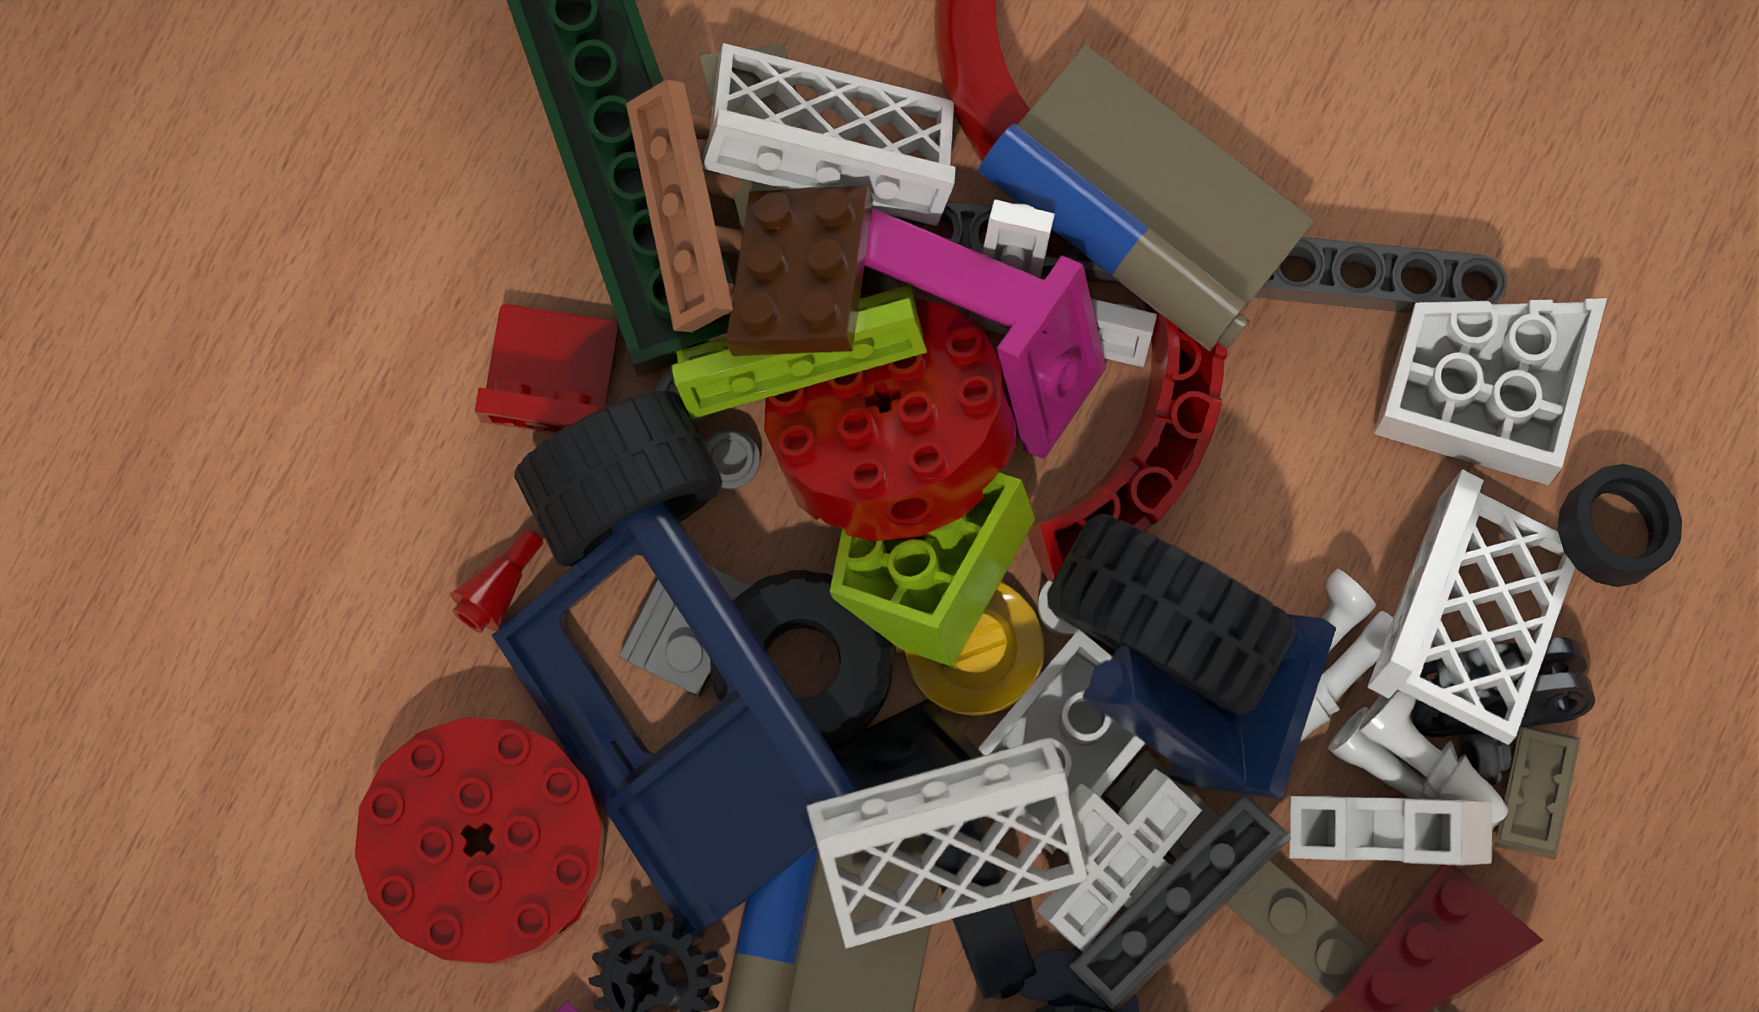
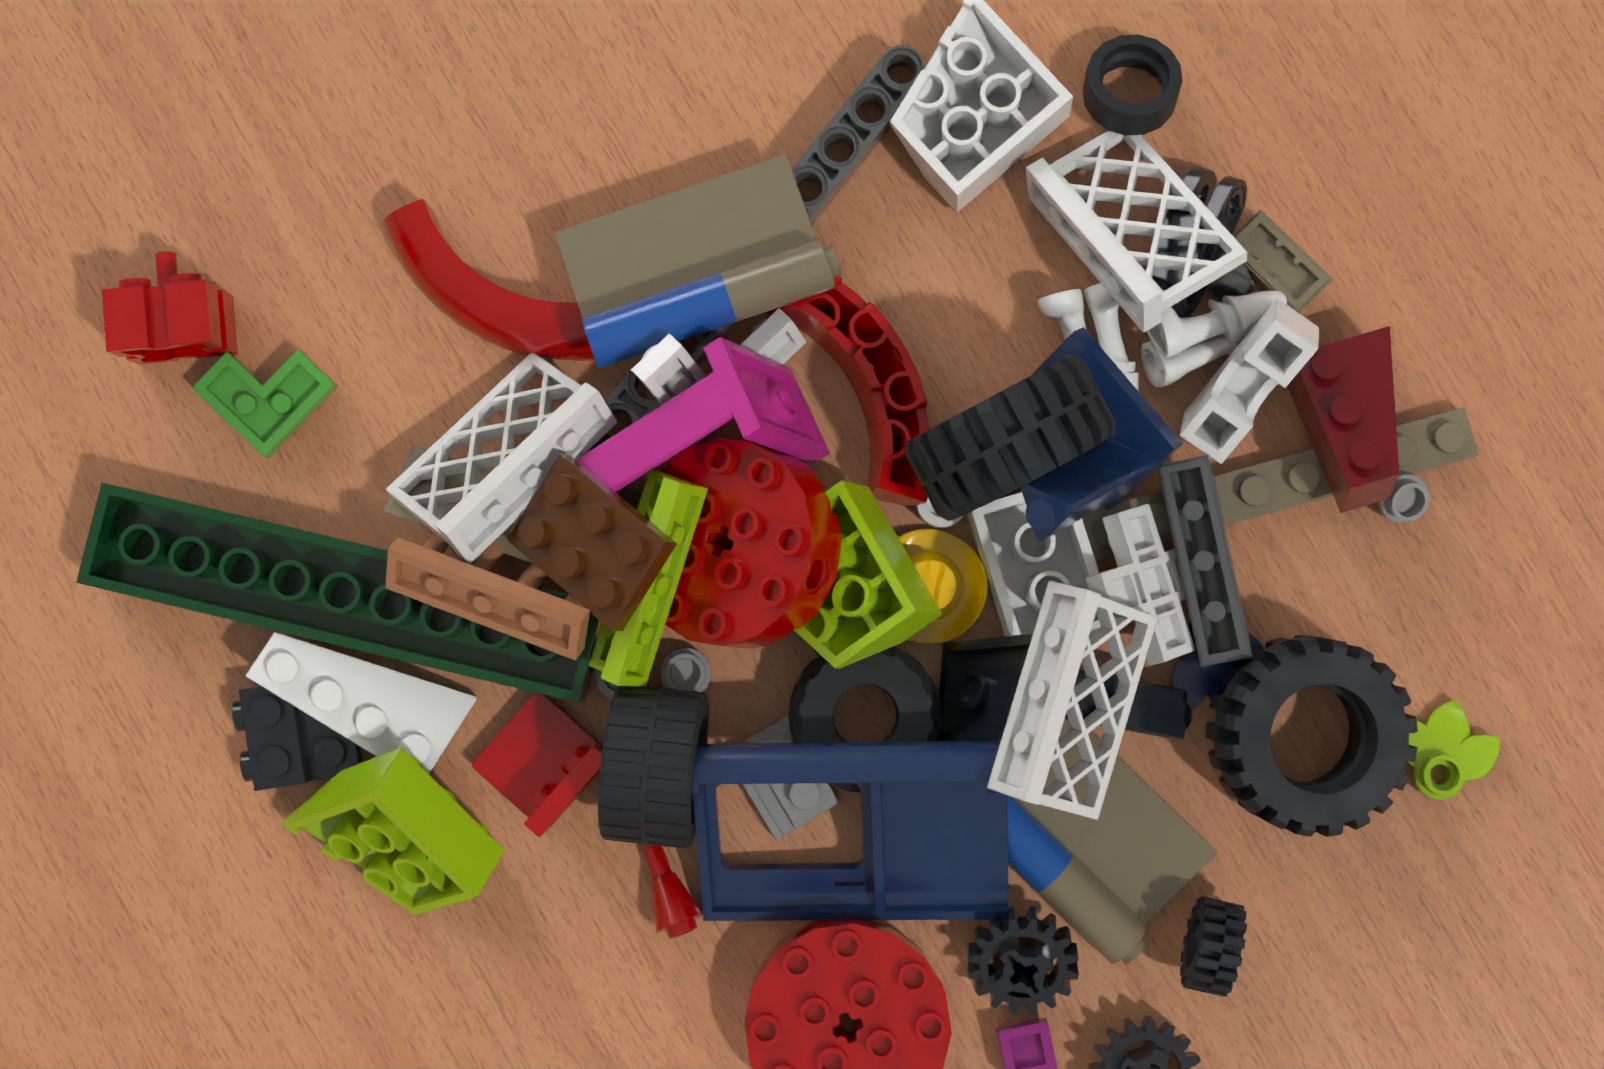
camera: 60 degrees left, 5 degrees up
(391, 276) = (400, 832): none -> lime wedge
(426, 114) = (287, 743): none -> black plate
(500, 173) = (362, 699): none -> white wing

